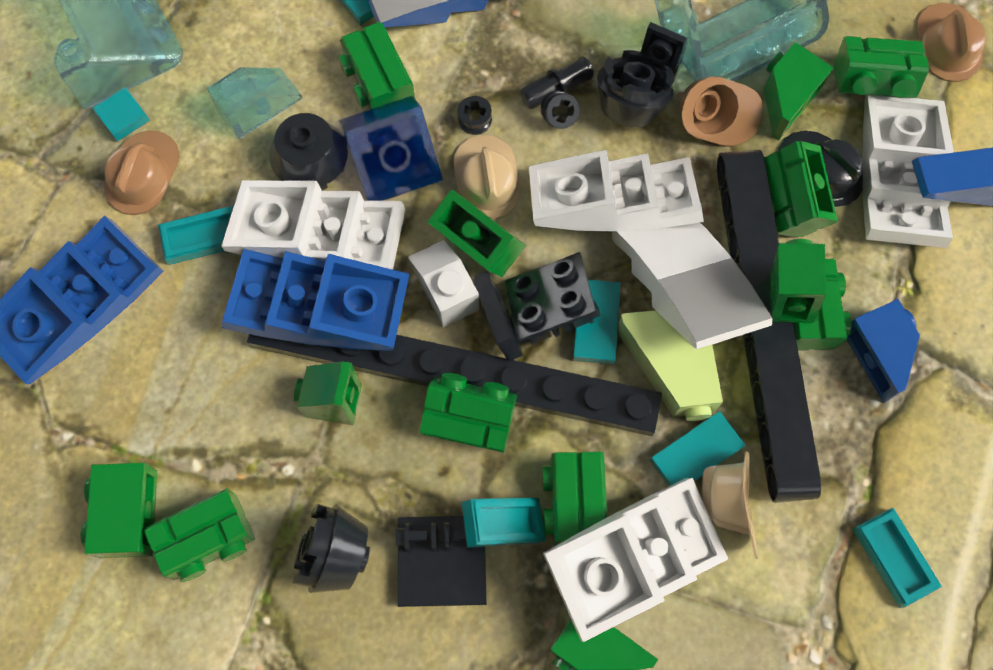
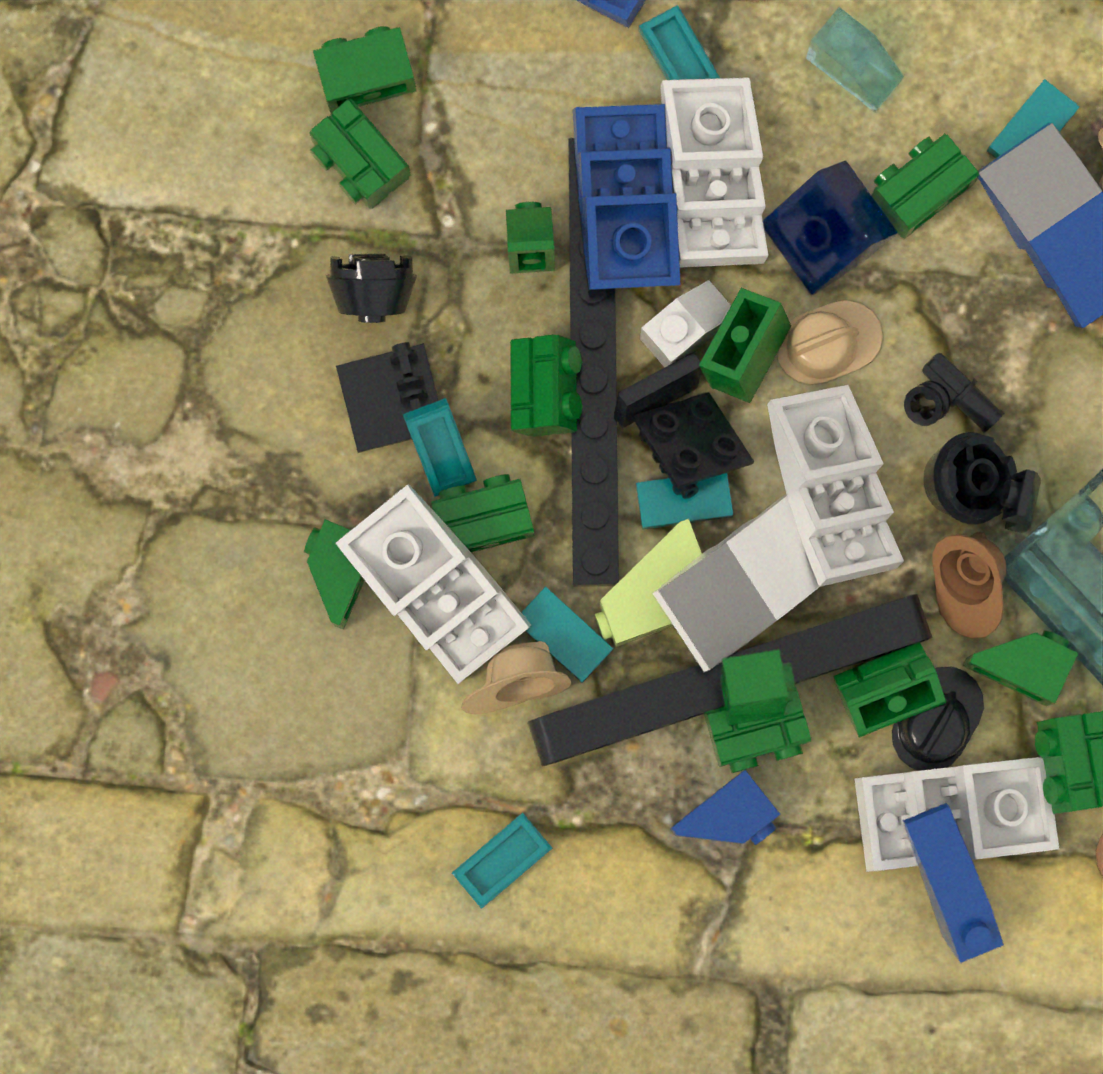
camera: 80 degrees right, 10 degrees up
(308, 150) = (801, 138): black cone -> none
(485, 118) = (889, 301): black bush -> none

